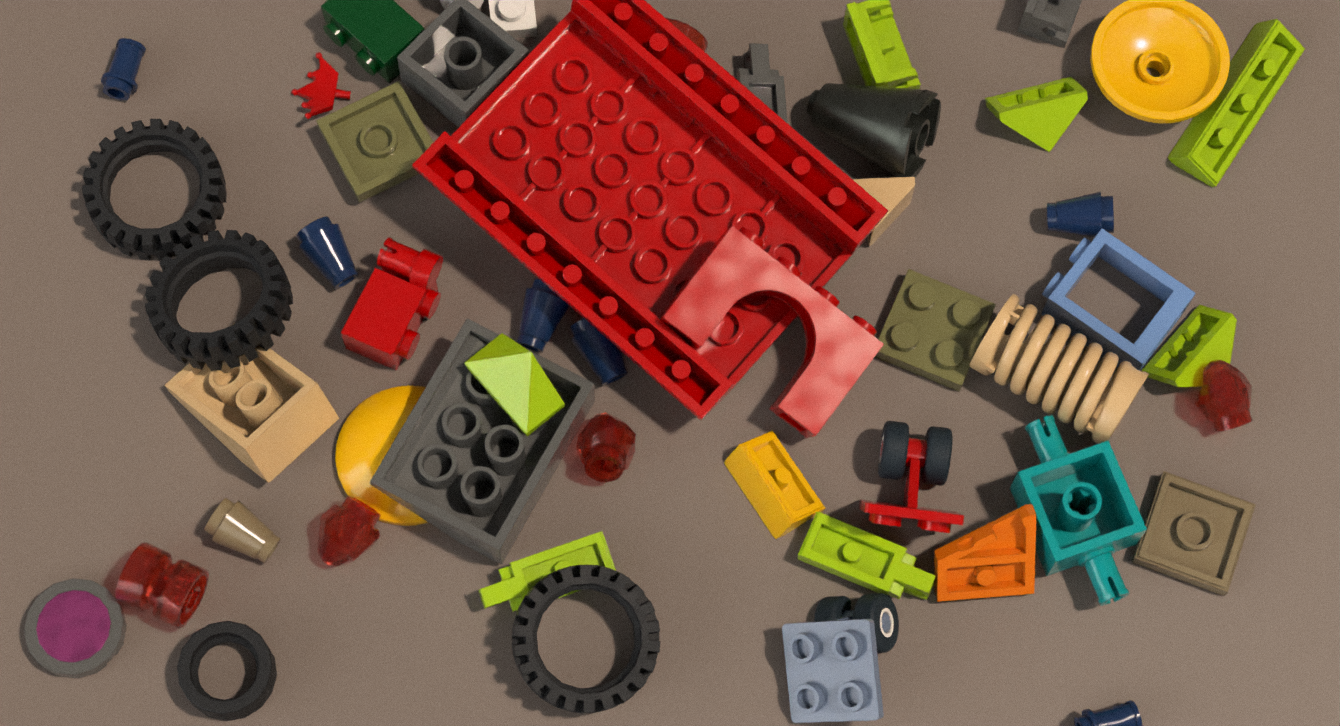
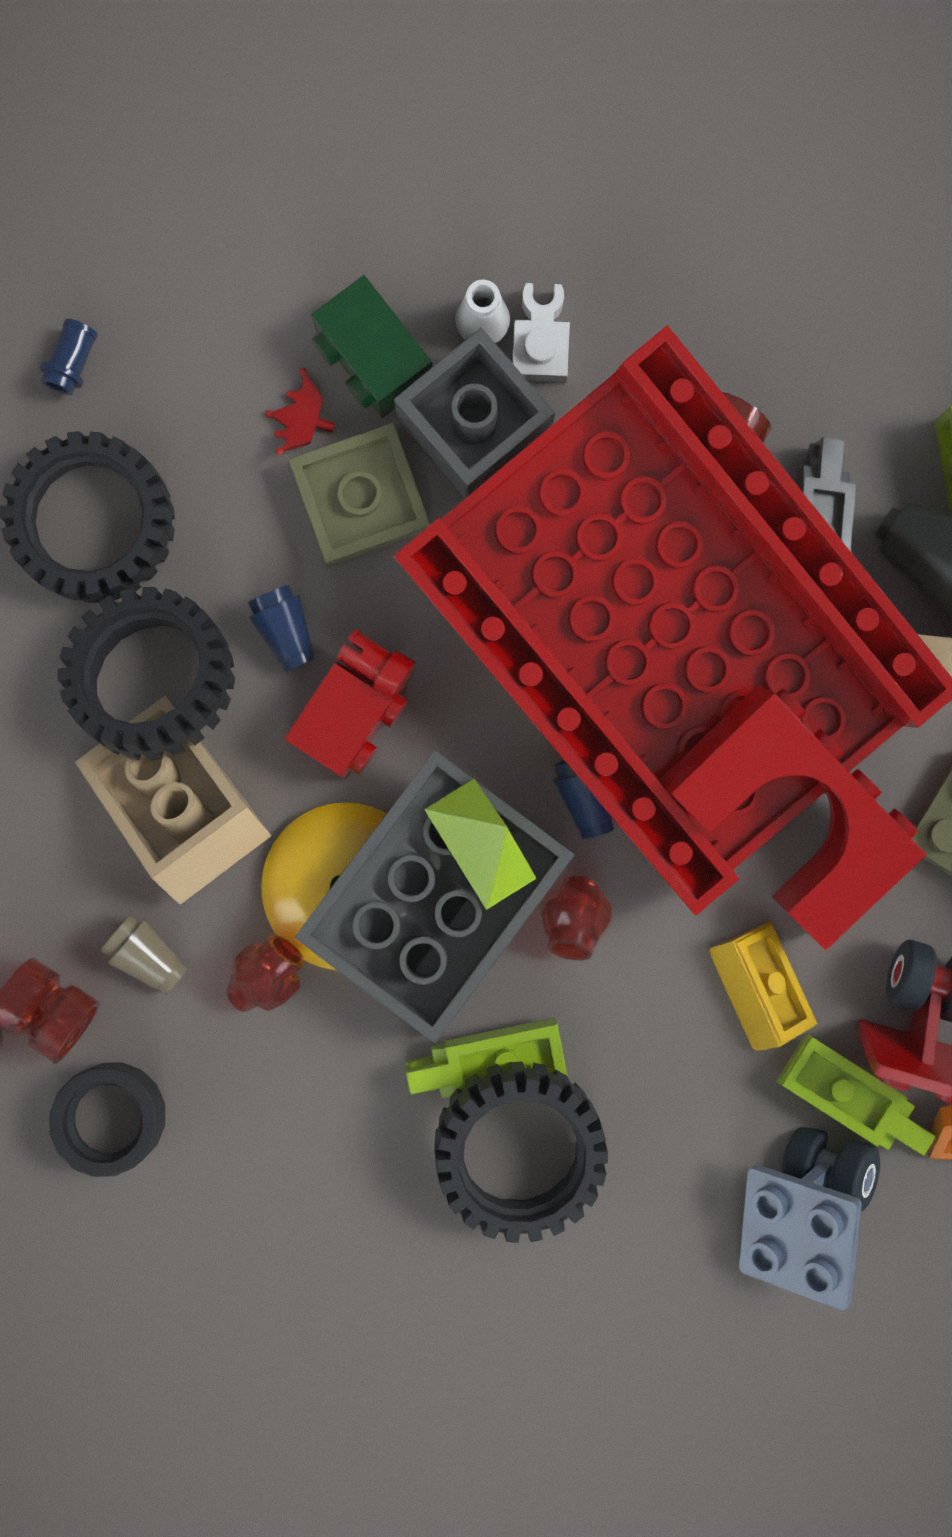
camera: 10 degrees right, 15 degrees up
(540, 316) = (518, 748): dark blue cone -> none

